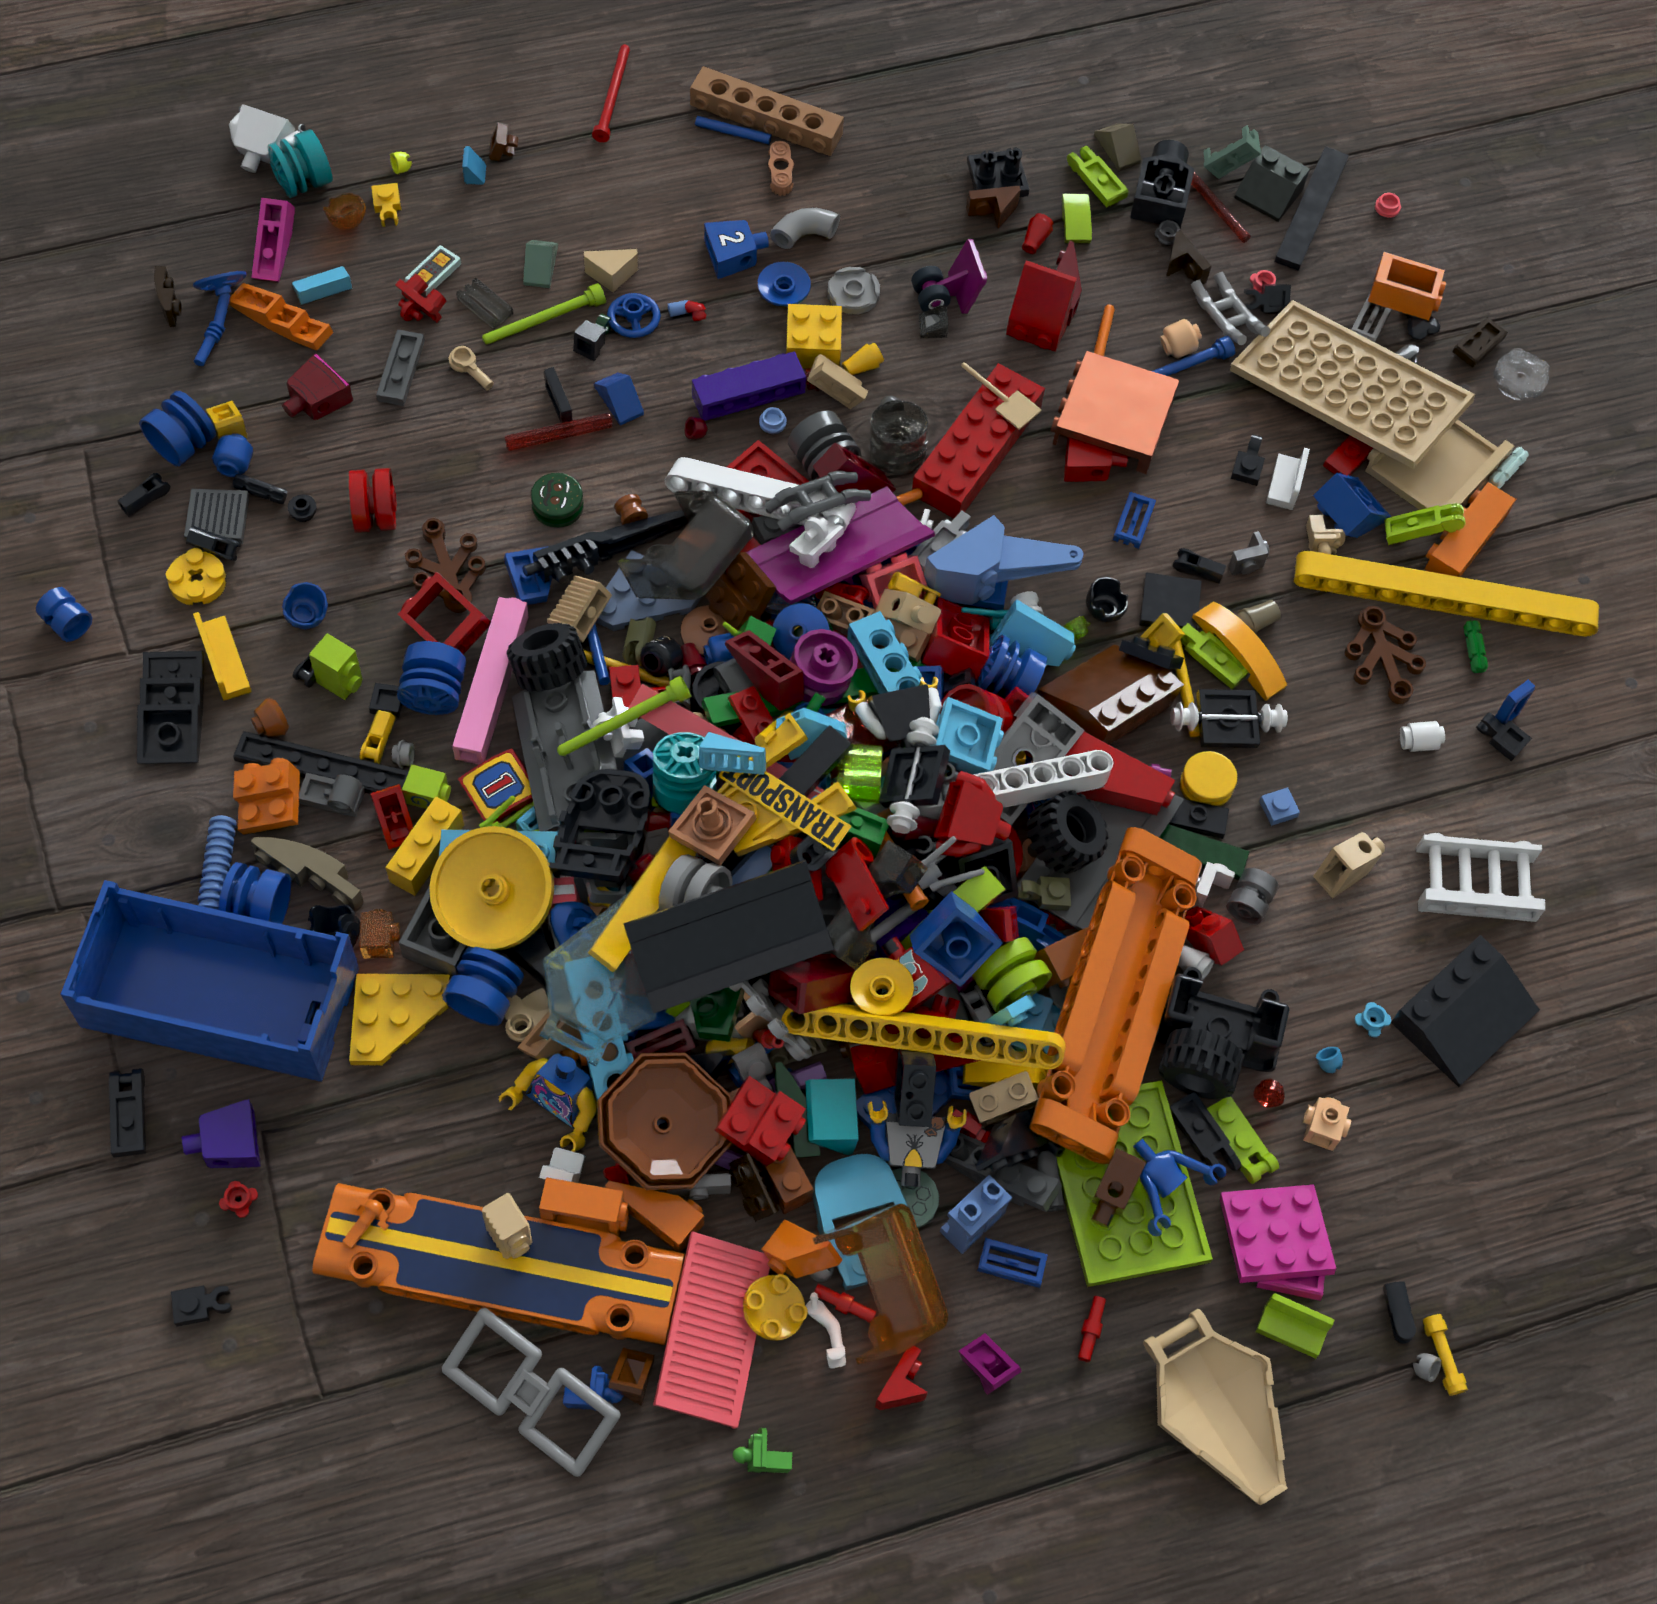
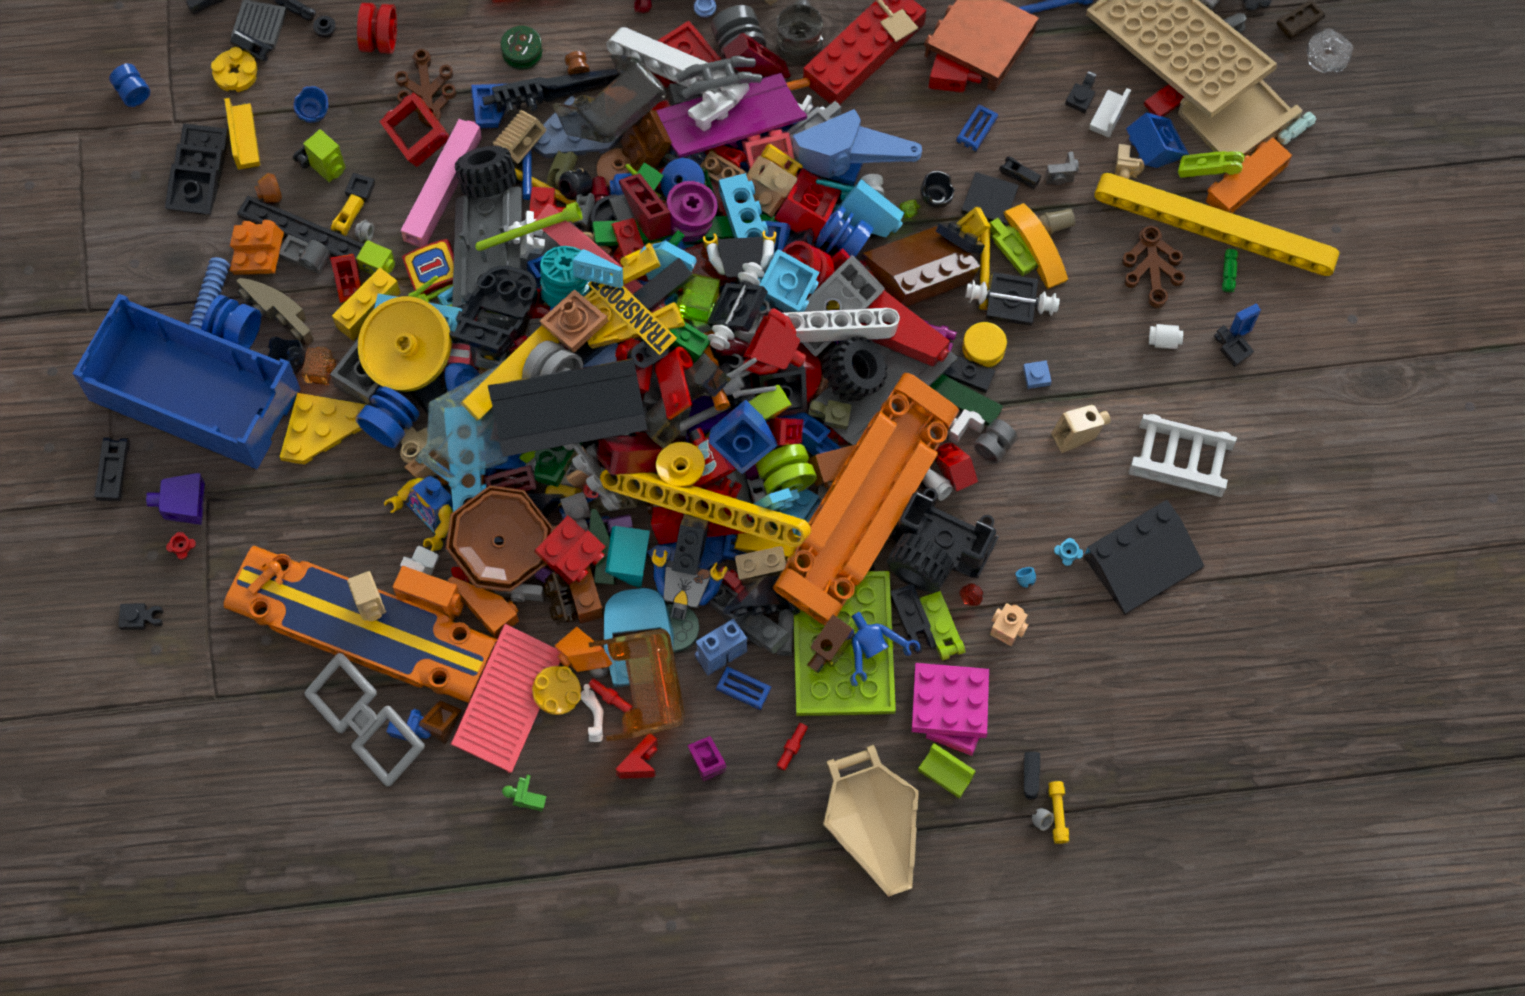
camera: 15 degrees right, 5 degrees up
(431, 678) = (395, 175): blue wheel -> none

